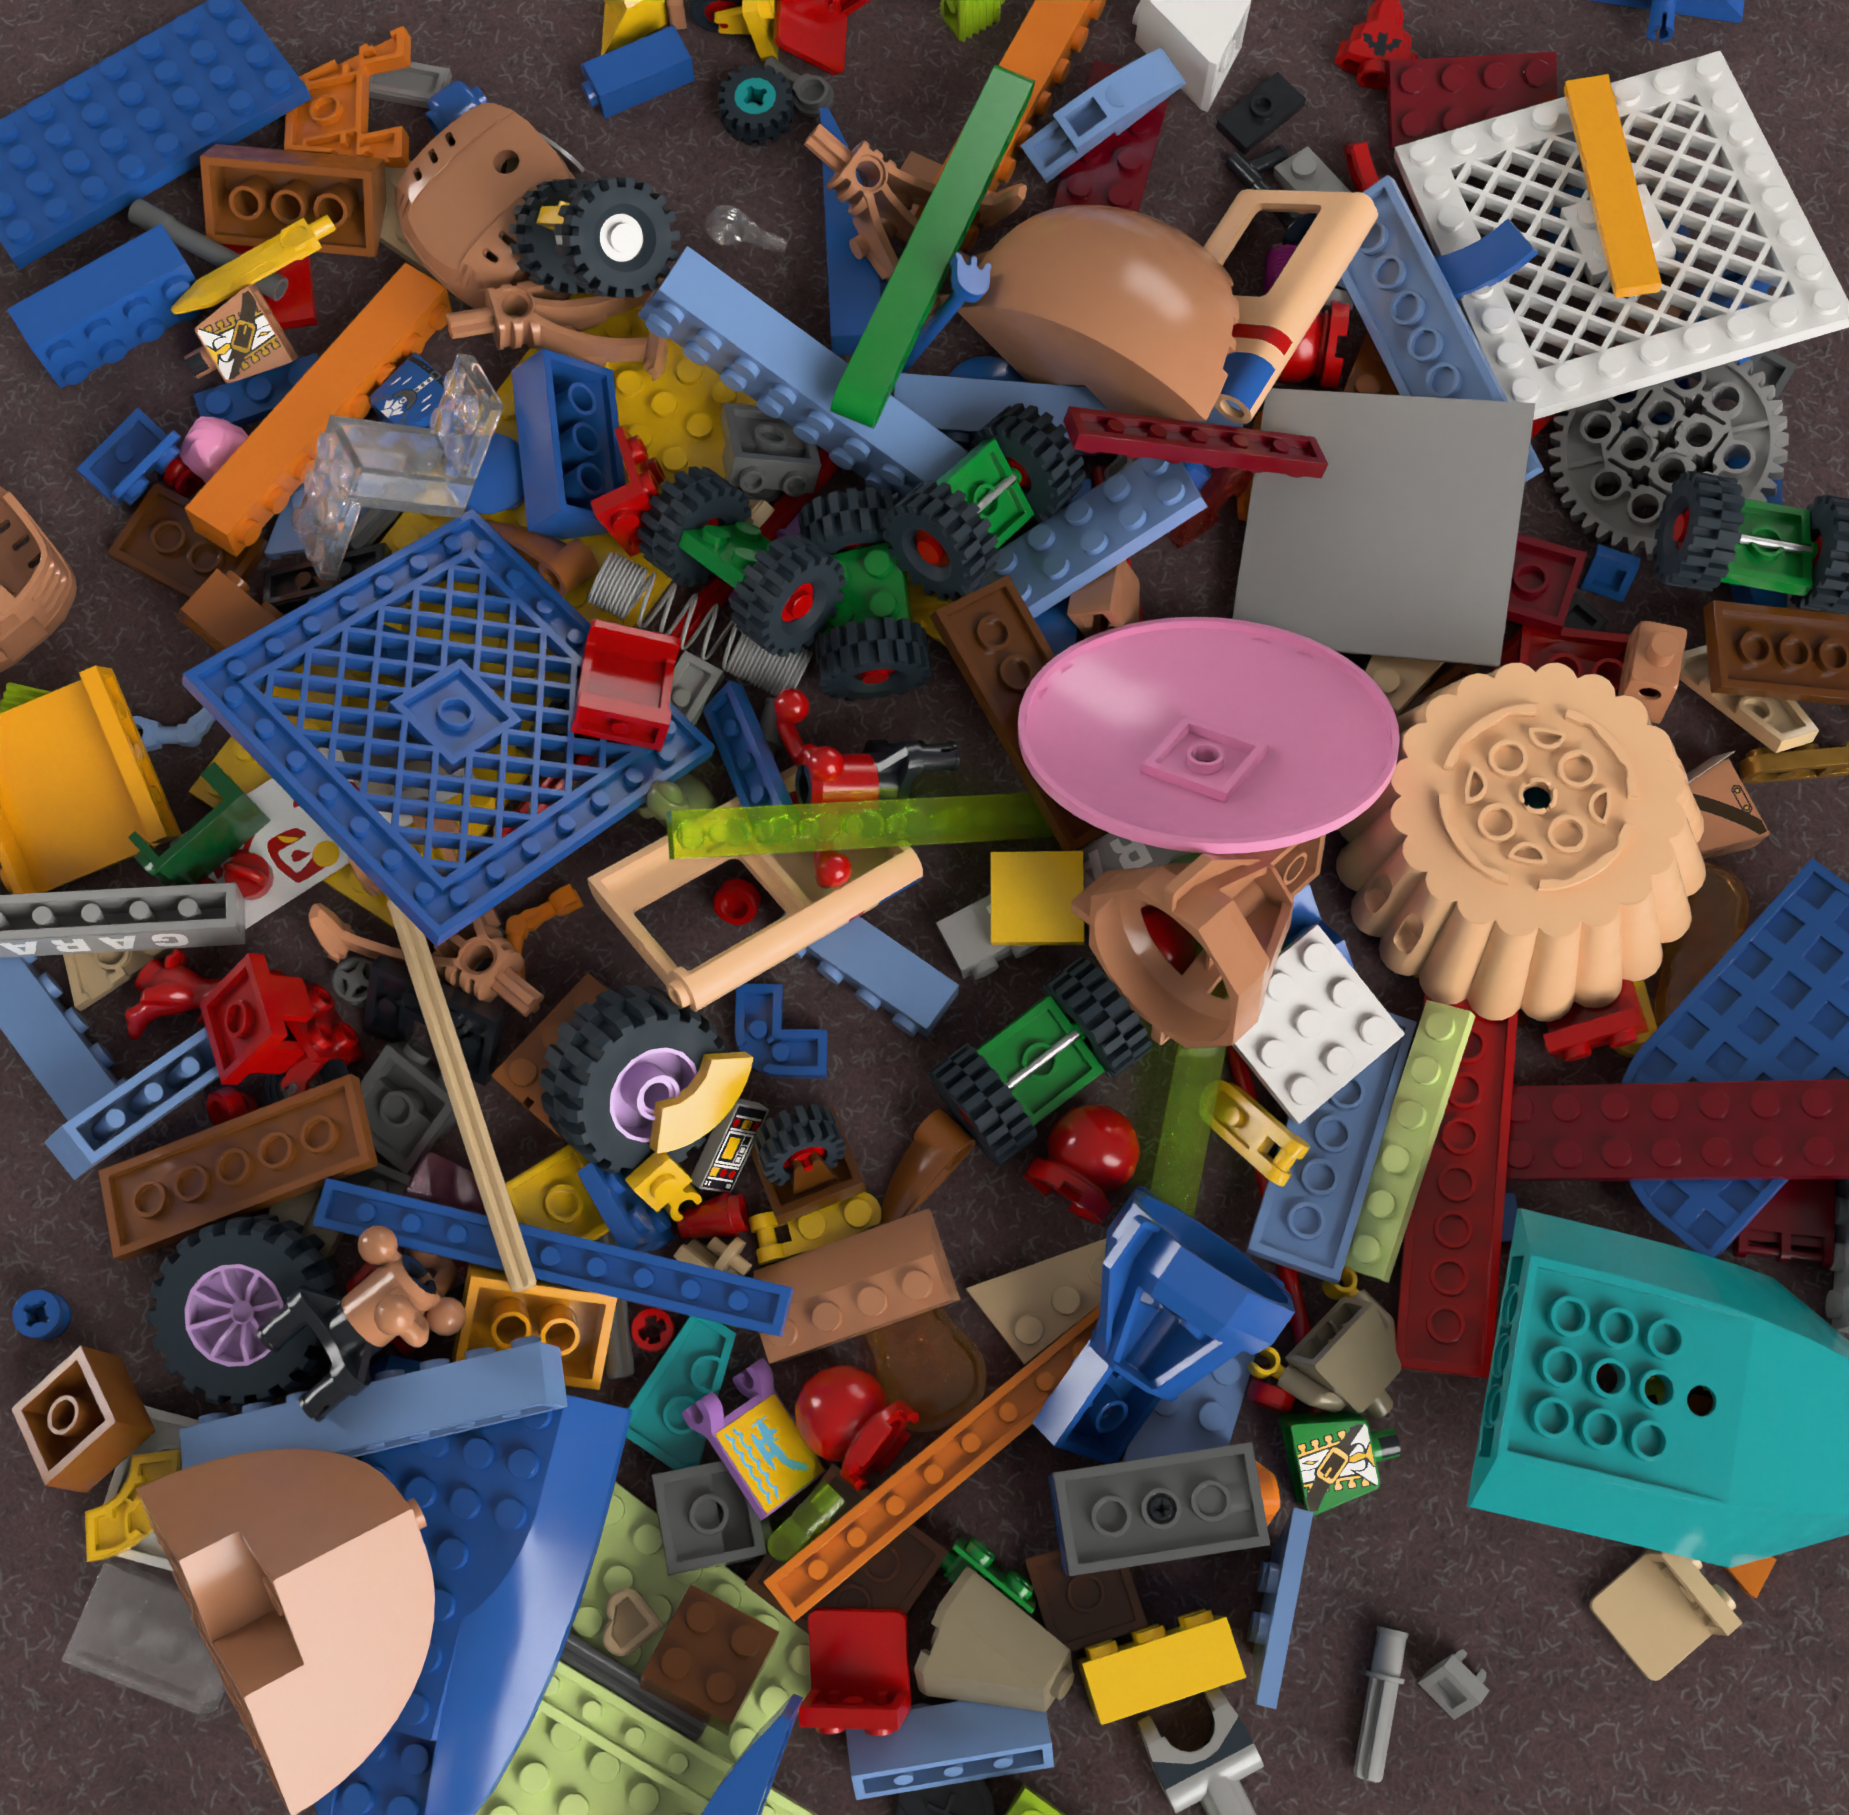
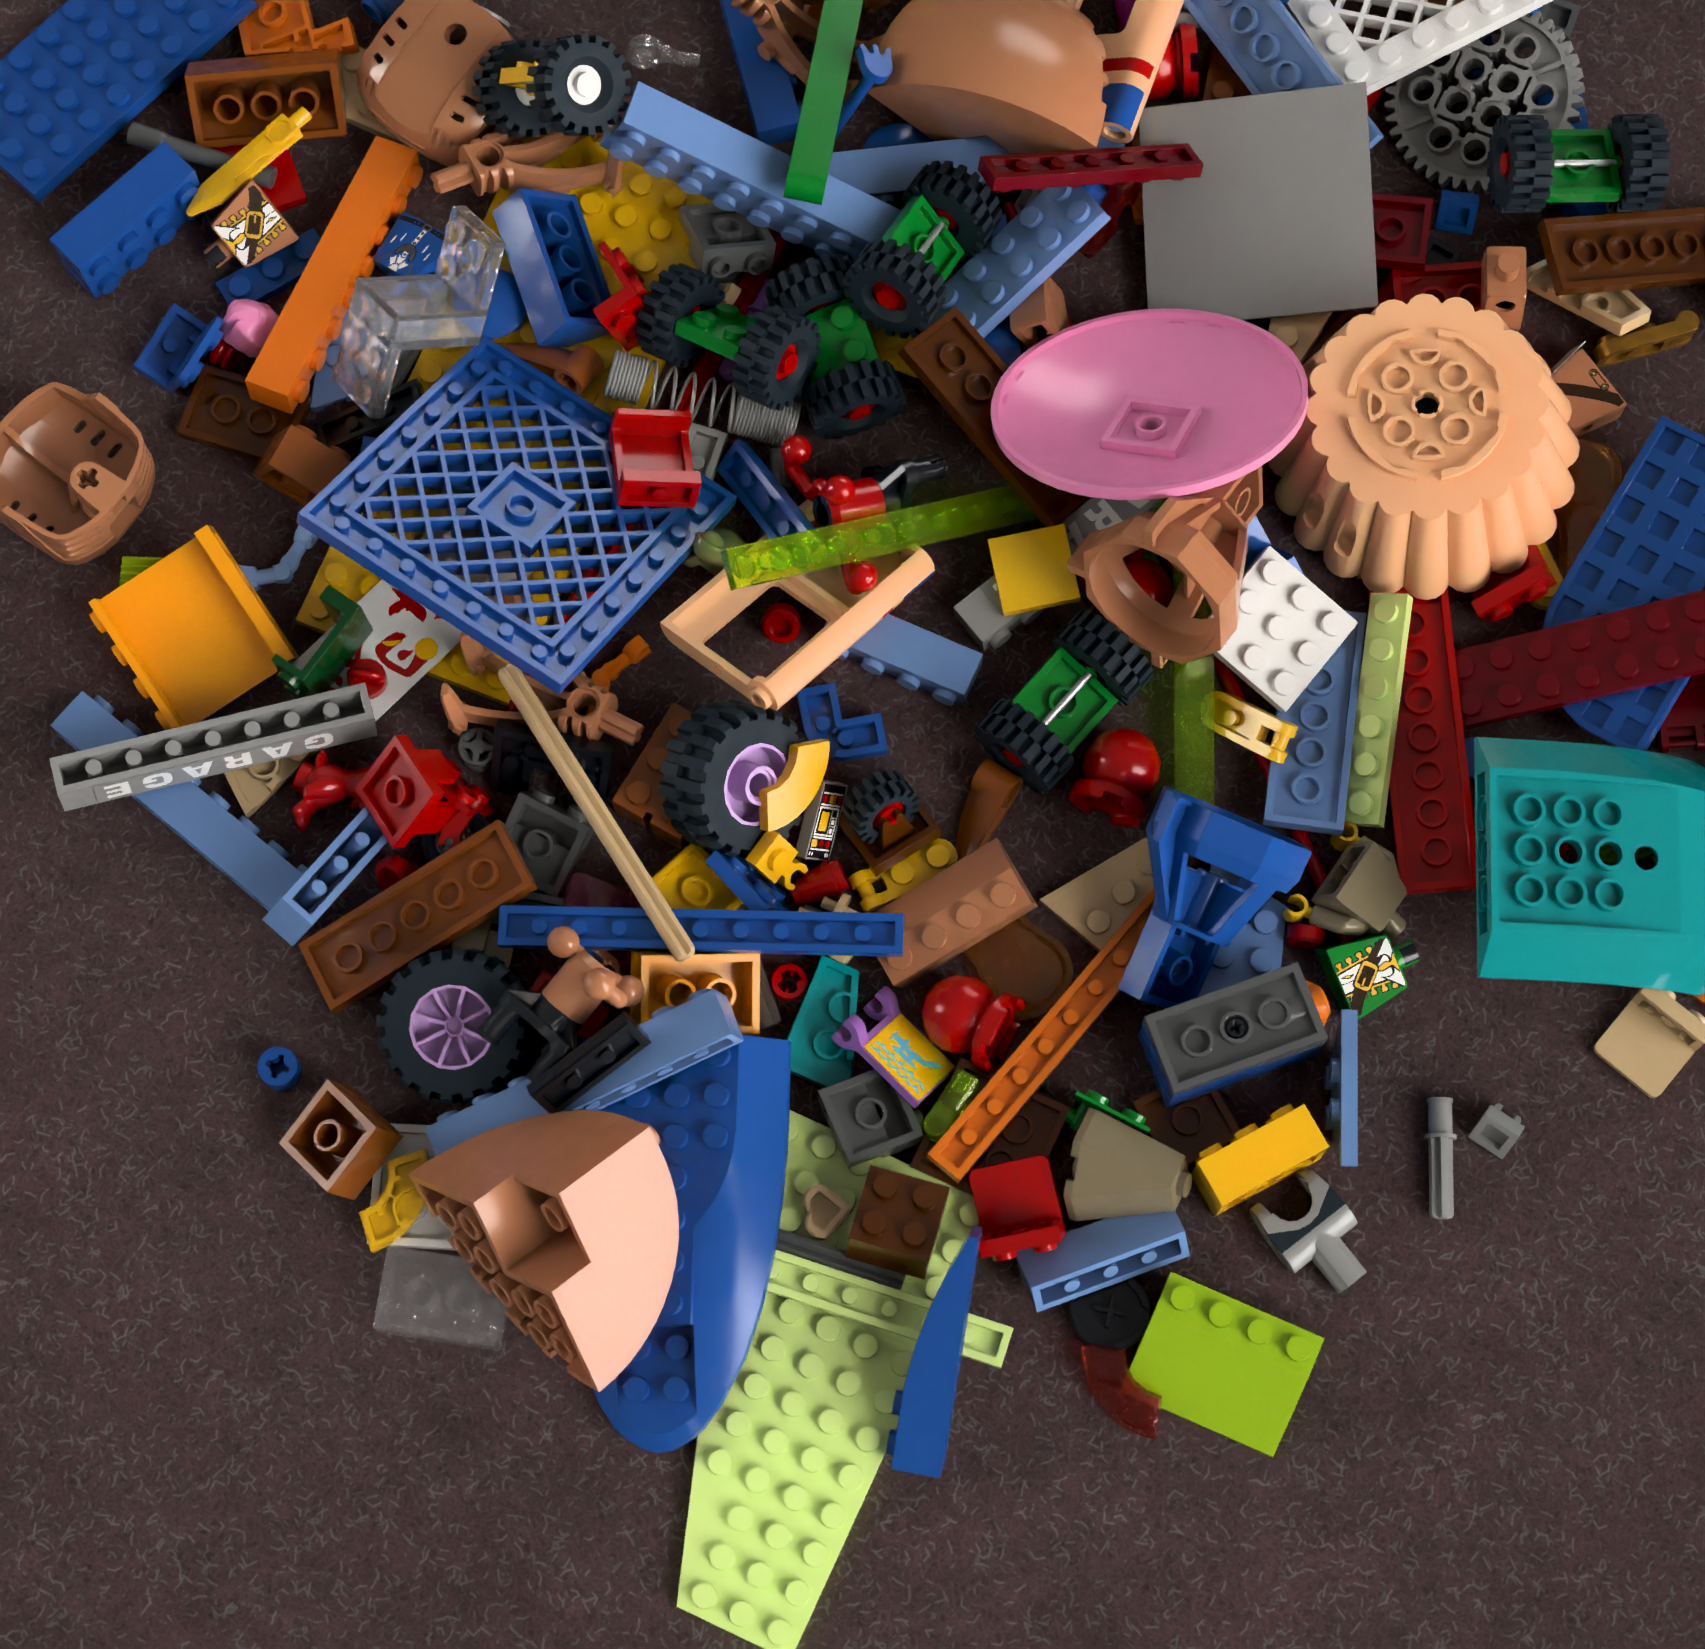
camera: 10 degrees left, 0 degrees up
(372, 1402) = (588, 1064): none -> black tile

